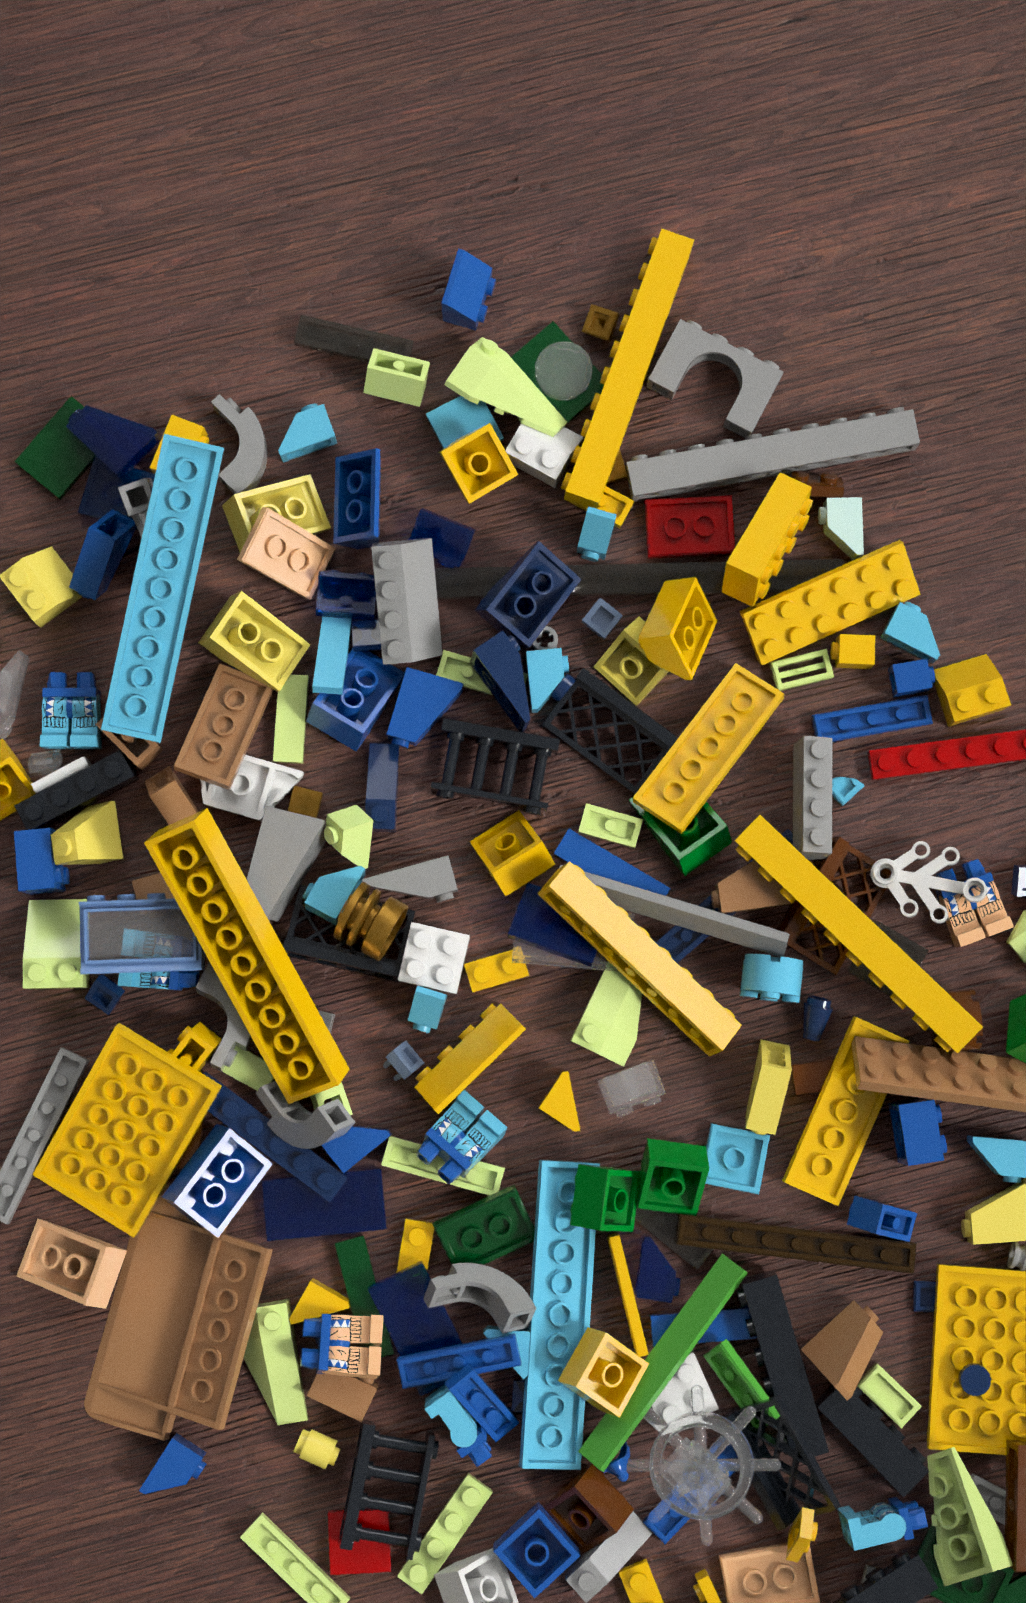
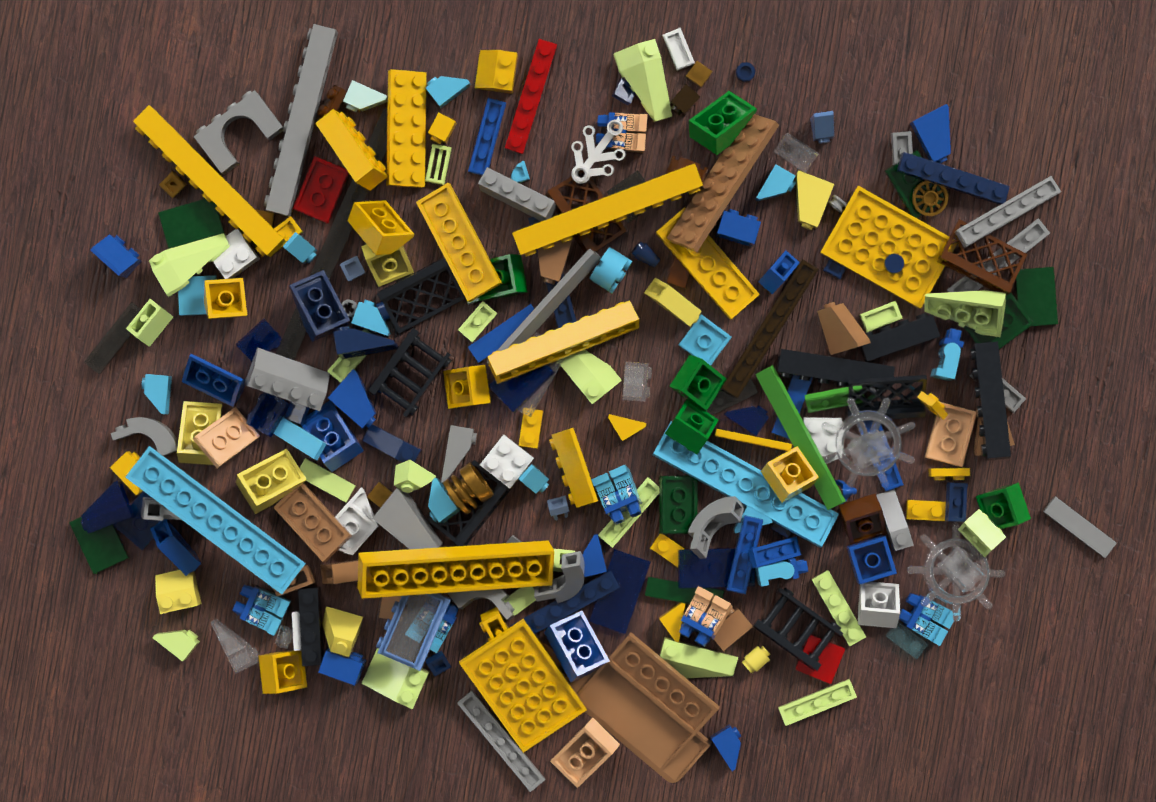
camera: 60 degrees left, 5 degrees up
(563, 370) = (192, 220): clear tile -> none
(911, 677) = (473, 102): blue brick -> none

